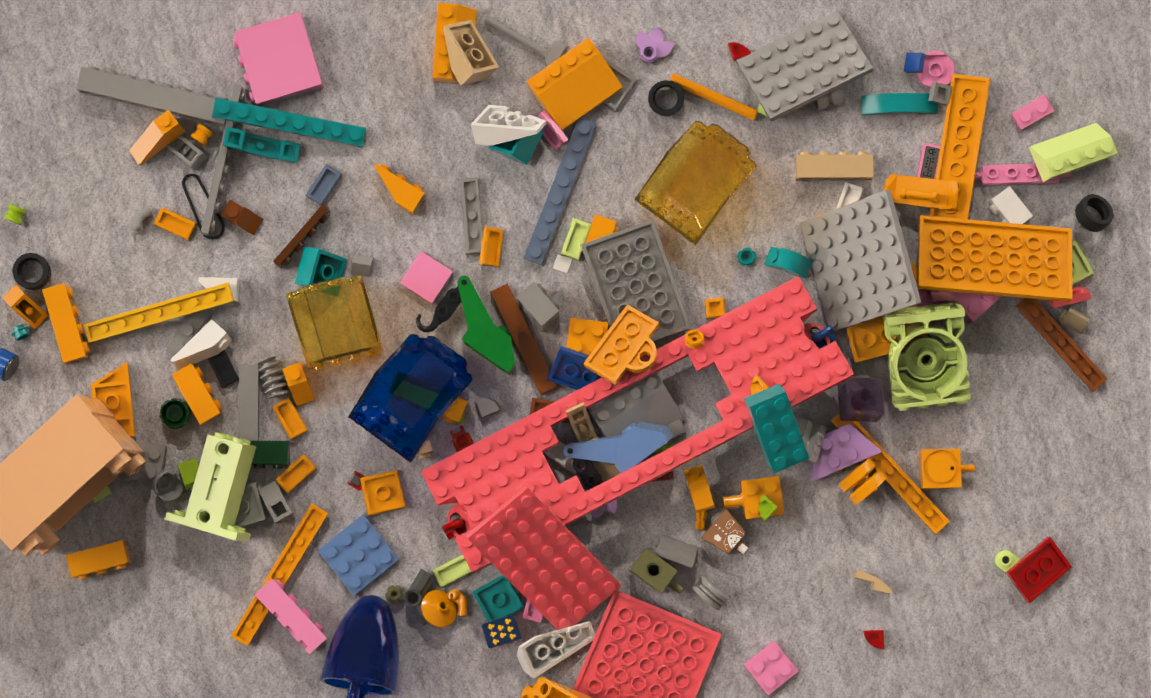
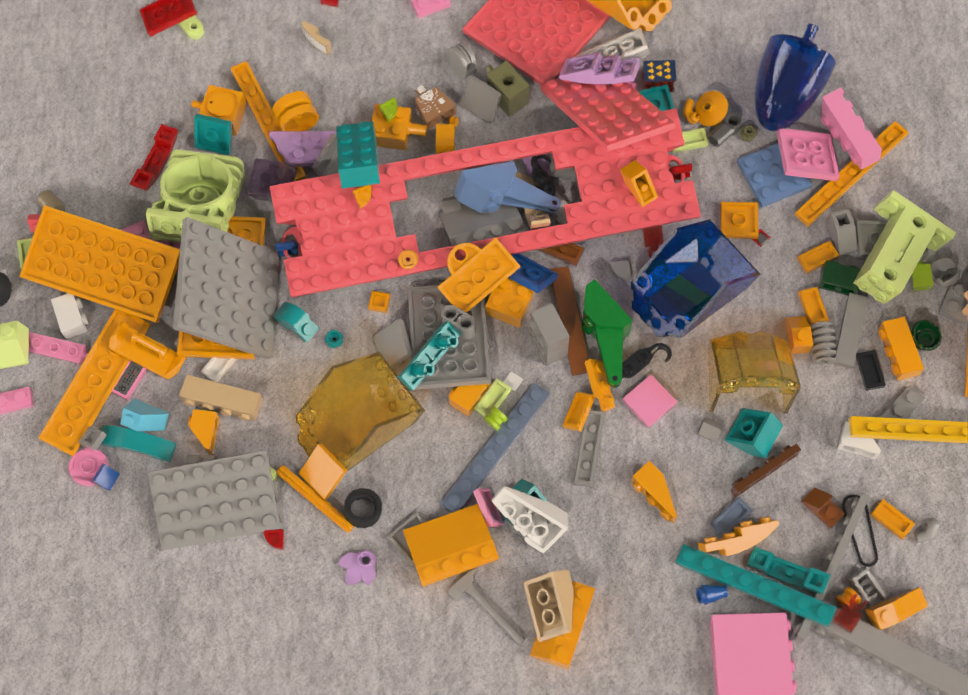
camera: 160 degrees left, 15 degrees down
(199, 113) = (848, 615): none -> clear red plate
(203, 345) = (879, 392): white slope -> none
(306, 166) = (742, 538): none -> light orange slope
(327, 107) = (710, 593): none -> blue cone
(328, 578) = (807, 154): none -> bright pink plate
(478, 278) = (599, 384): none -> light orange hinge
(489, 478) = (639, 182): none -> light orange slope
(563, 611) = (598, 70): none -> lavender slope
(567, 215) = (495, 418): none -> lime wheel
(628, 296) = (459, 320): none -> light grey beam
(645, 253) = (429, 355): none -> teal plate
(686, 261) = (393, 343): none -> light grey tile
(713, 120) = (322, 471): none -> light orange tile
(839, 133) = (204, 427): none -> light orange slope
(900, 127) = (144, 417): none -> medium azure slope
(939, 436) = (212, 134): none -> teal plate
(989, 397) = (156, 159): none -> red slope
(1061, 343) = (68, 180): dark orange plate -> none

